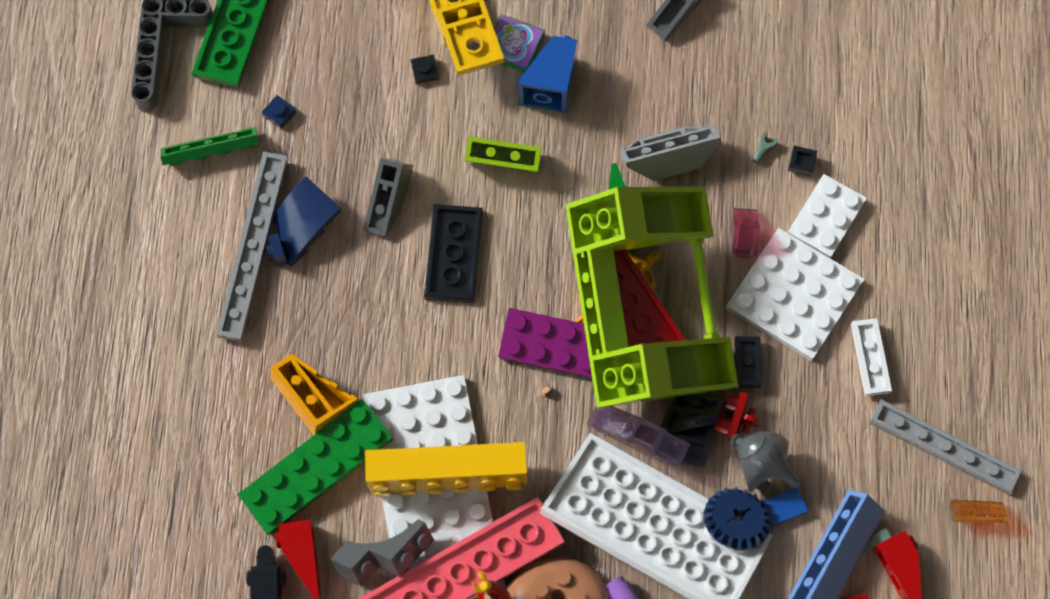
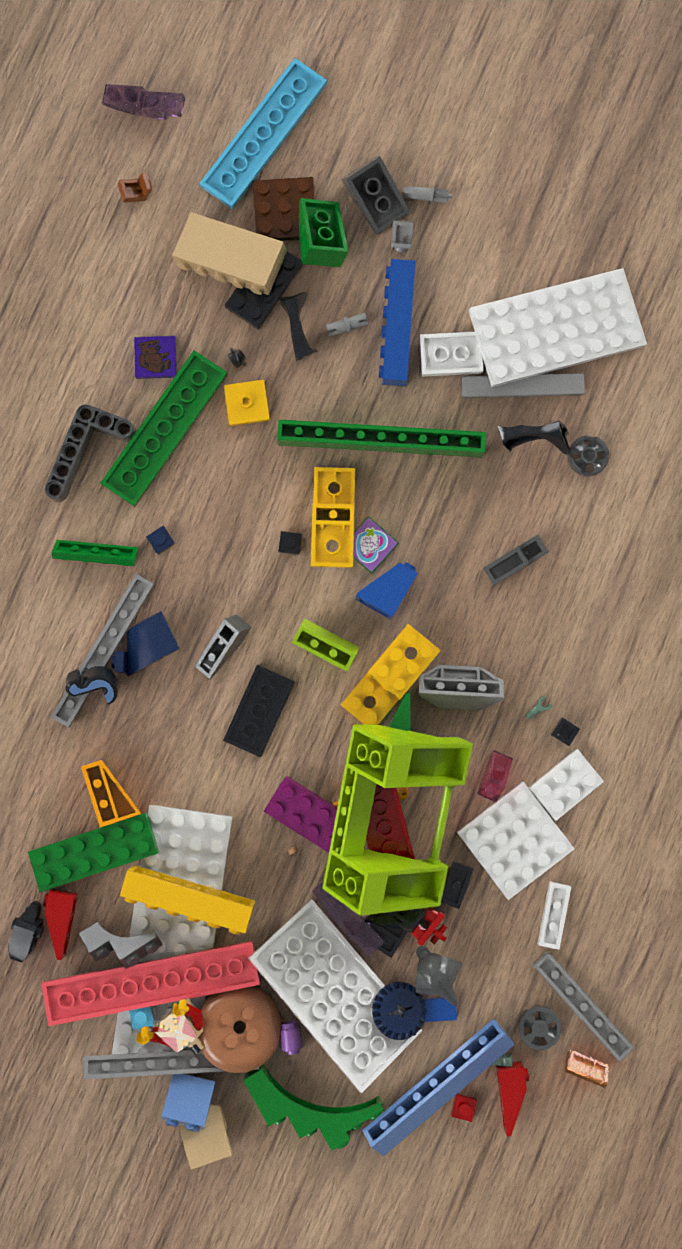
camera: 20 degrees right, 15 degrees up
(251, 274) = (93, 679): none -> black animal
(587, 156) = (390, 676): none -> yellow bracket
(905, 487) = (539, 1027): none -> dark grey piece

